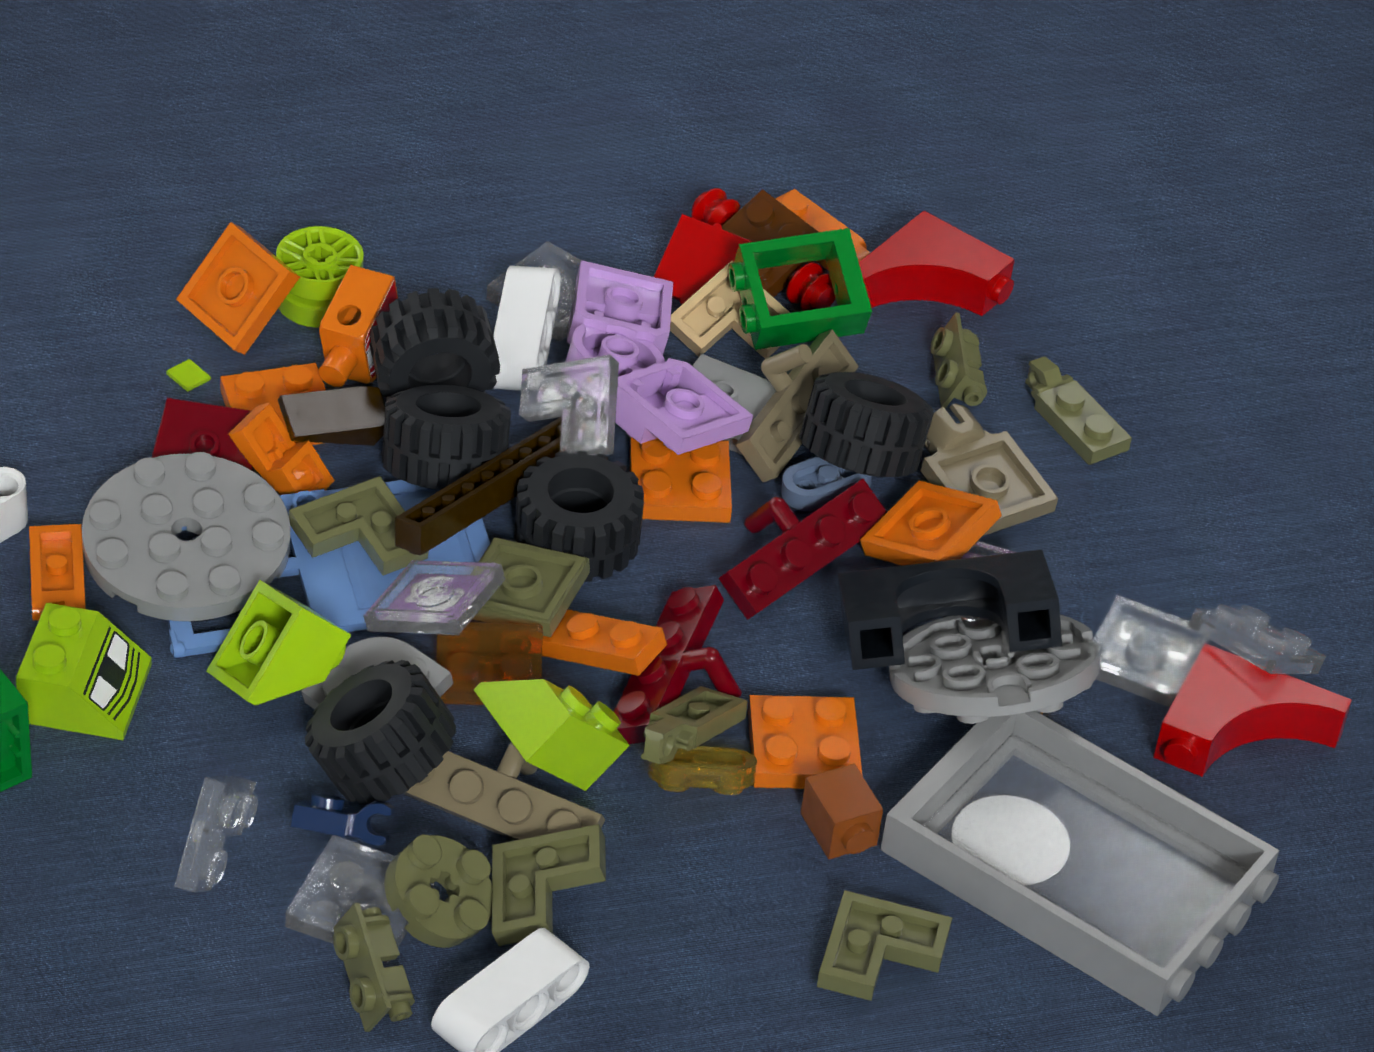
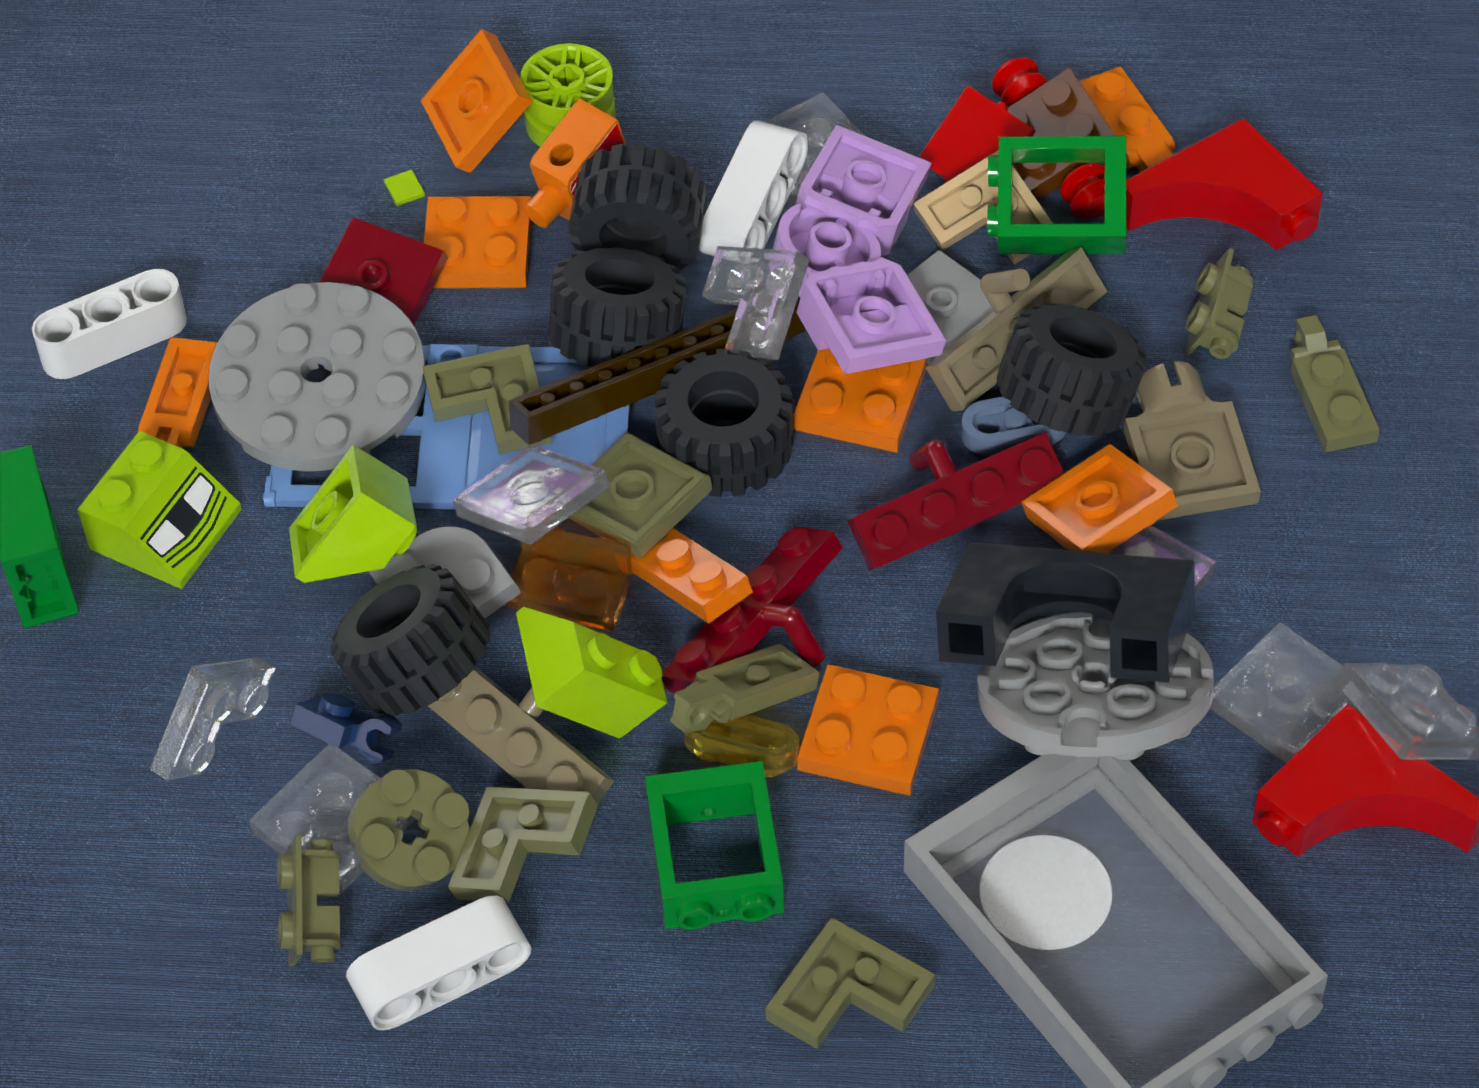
camera: 25 degrees right, 10 degrees up
(278, 460) = (444, 300): orange slope -> none
(335, 415) = (511, 262): slope -> none
(706, 812) = (709, 796): none -> green window
(841, 811) = (868, 823): dark orange brick -> none

